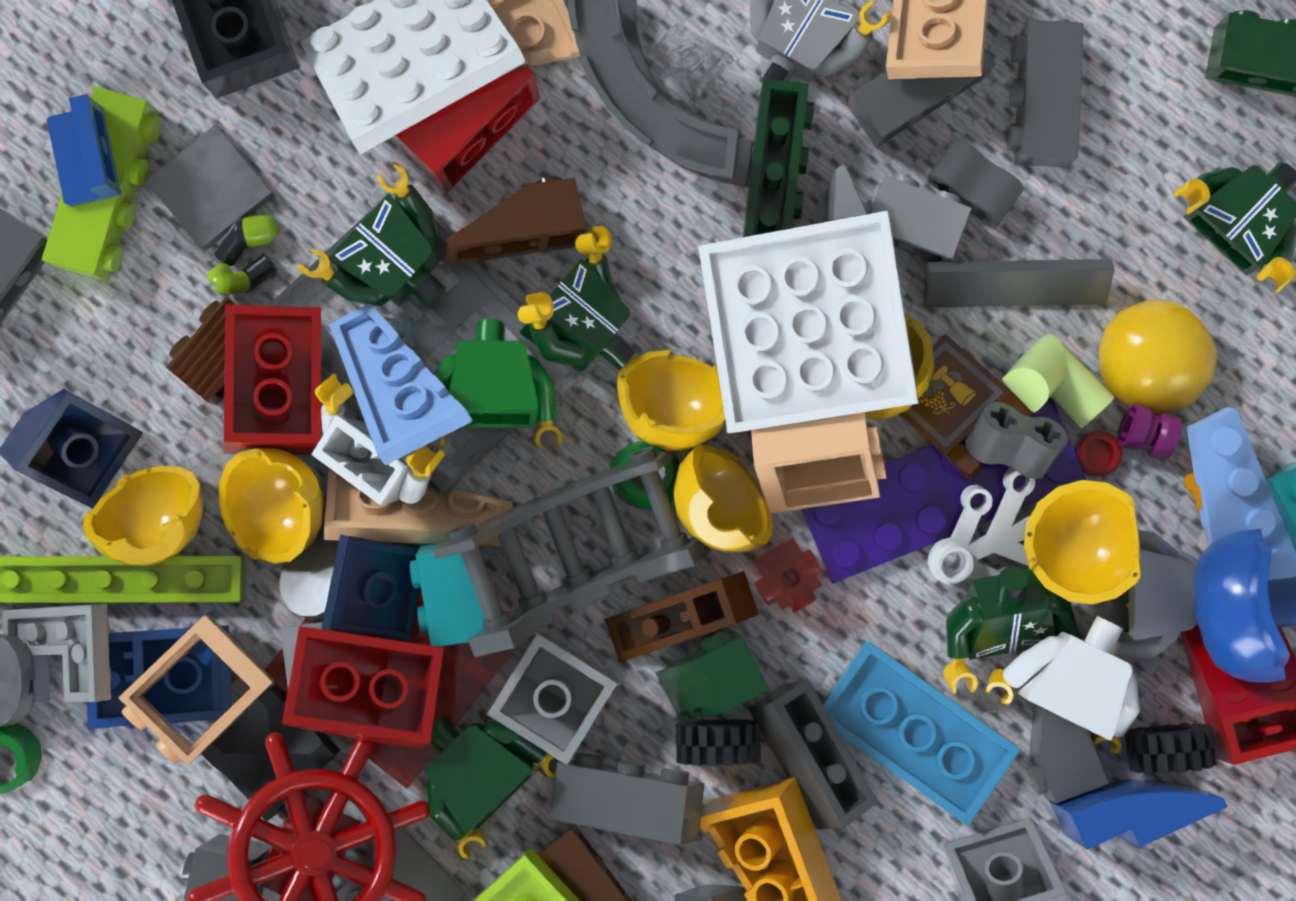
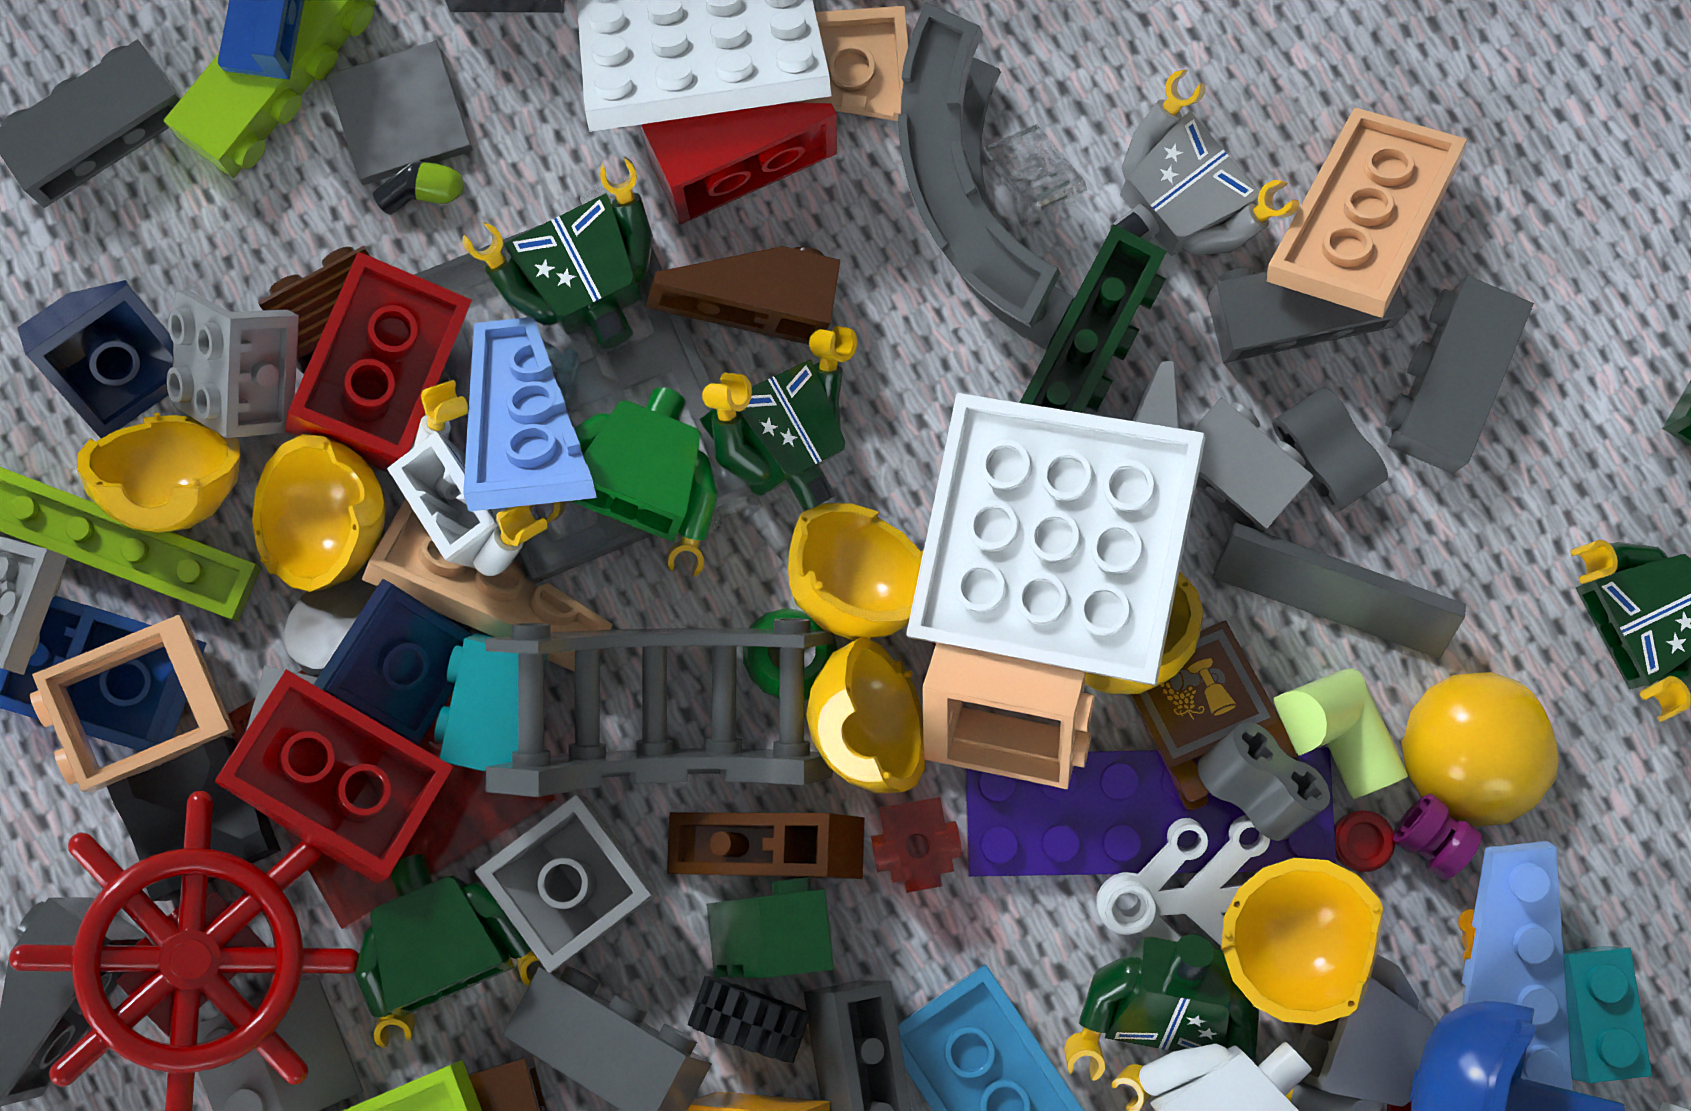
camera: 15 degrees right, 5 degrees down
(167, 422) = (232, 366): none -> light grey bracket
(244, 280) = (392, 236): arm -> none

